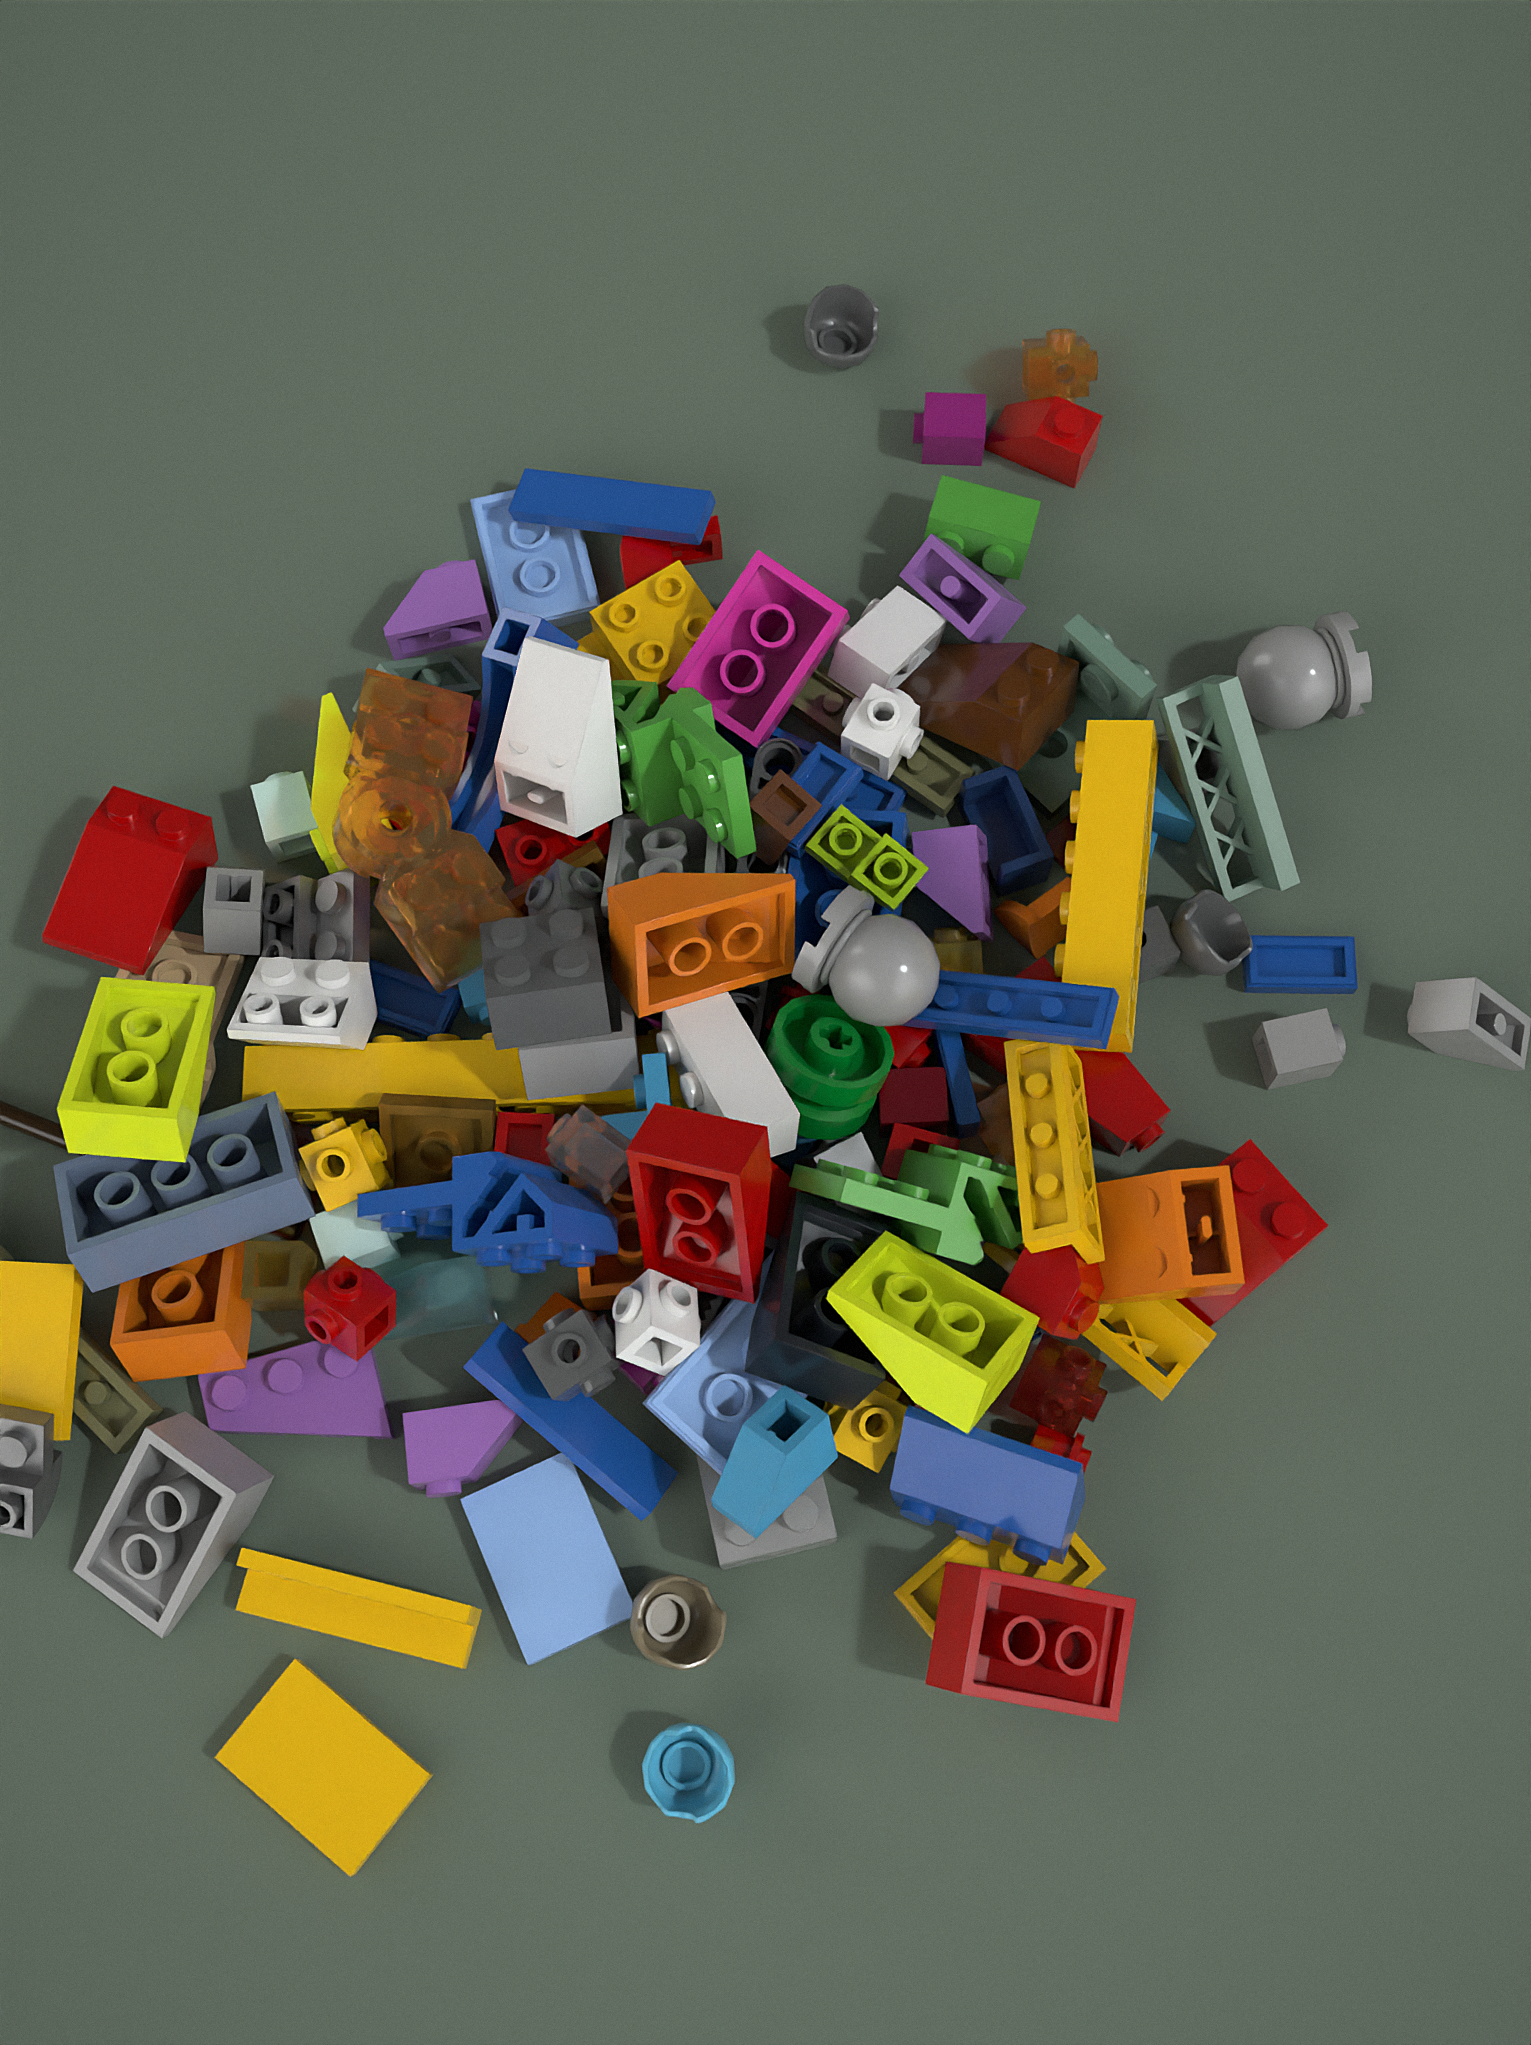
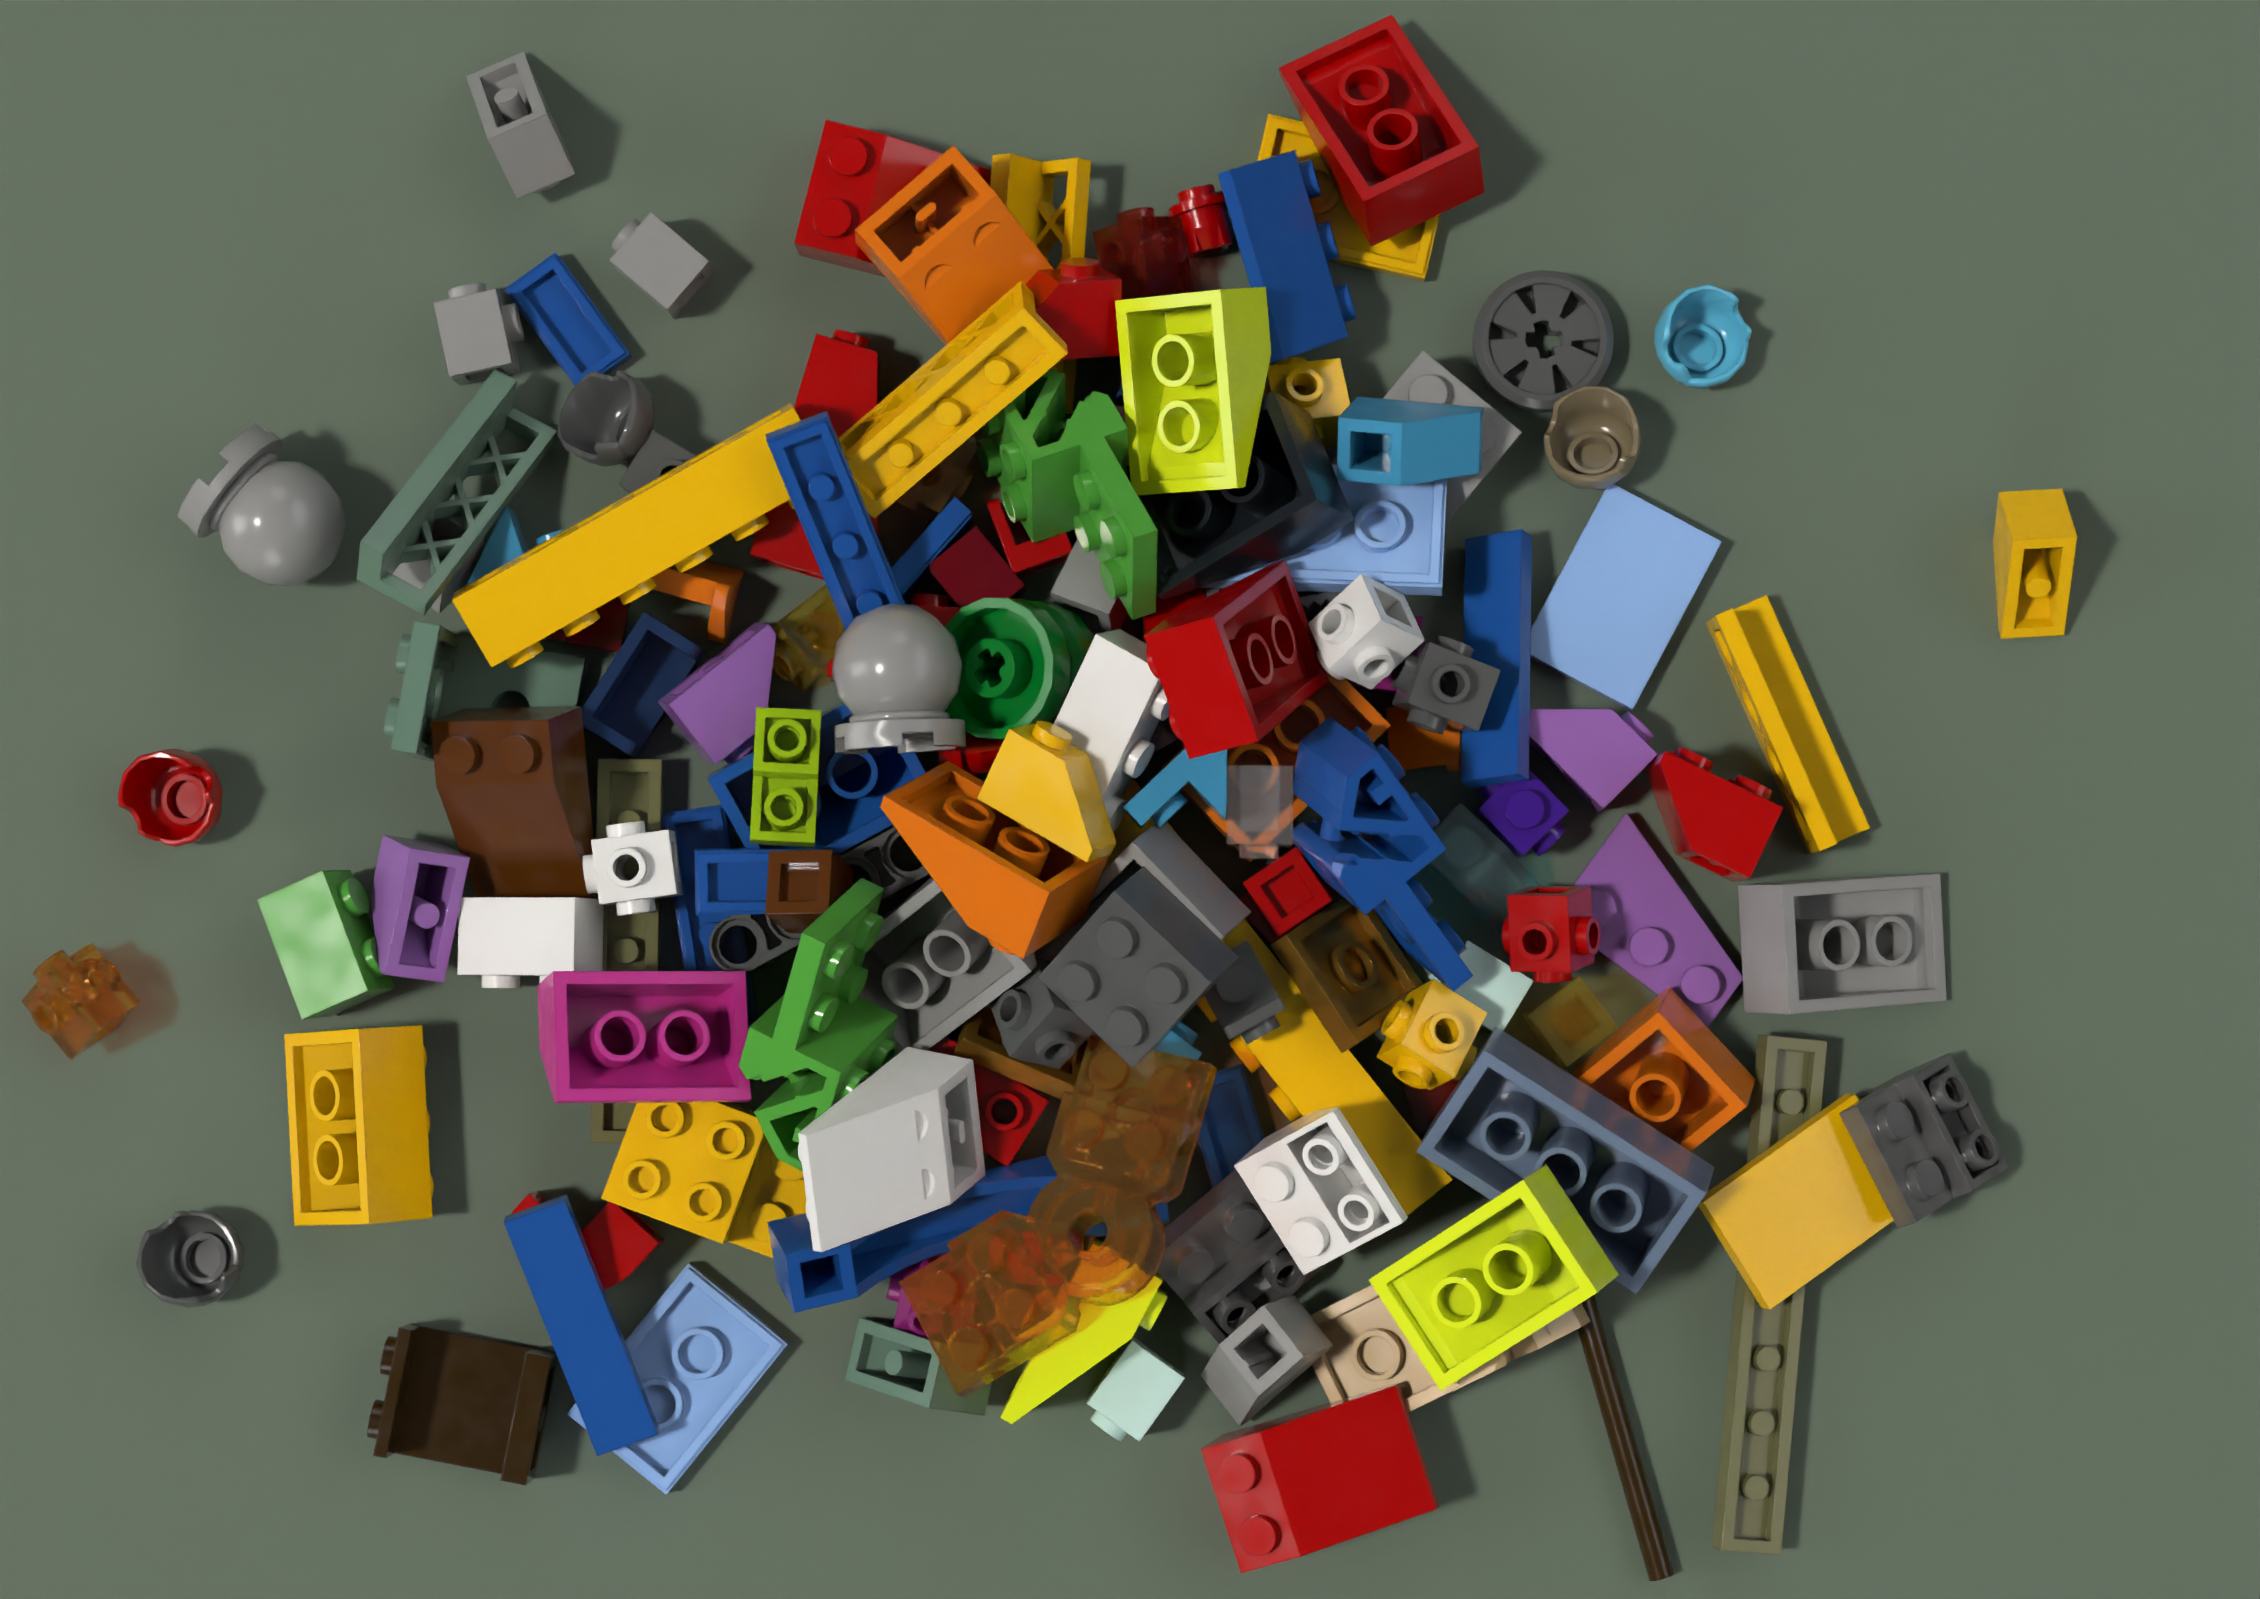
camera: 130 degrees left, 15 degrees up
(322, 1902) = (2033, 562): none -> yellow slope
(324, 1767) = (1931, 650): yellow tile -> none
(328, 1489) = (1709, 818): none -> red slope
(440, 612) = (809, 1417): medium lavender slope -> none
(442, 1353) = (1522, 815): none -> dark purple brick
(472, 1061) = (1245, 998): none -> dark grey bracket
(629, 424) = (463, 1401): none -> dark brown panel
(711, 1003) = (1050, 790): none -> yellow slope
(789, 1684) = (1567, 311): none -> dark grey wheel
(845, 476) = (358, 1126): none -> yellow slope
(951, 428) = (227, 1059): magenta brick -> none
(1047, 437) = (167, 959): red slope -> none
(1150, 504) = (171, 796): none -> red hair
(1334, 894) = (478, 333): none -> light grey brick

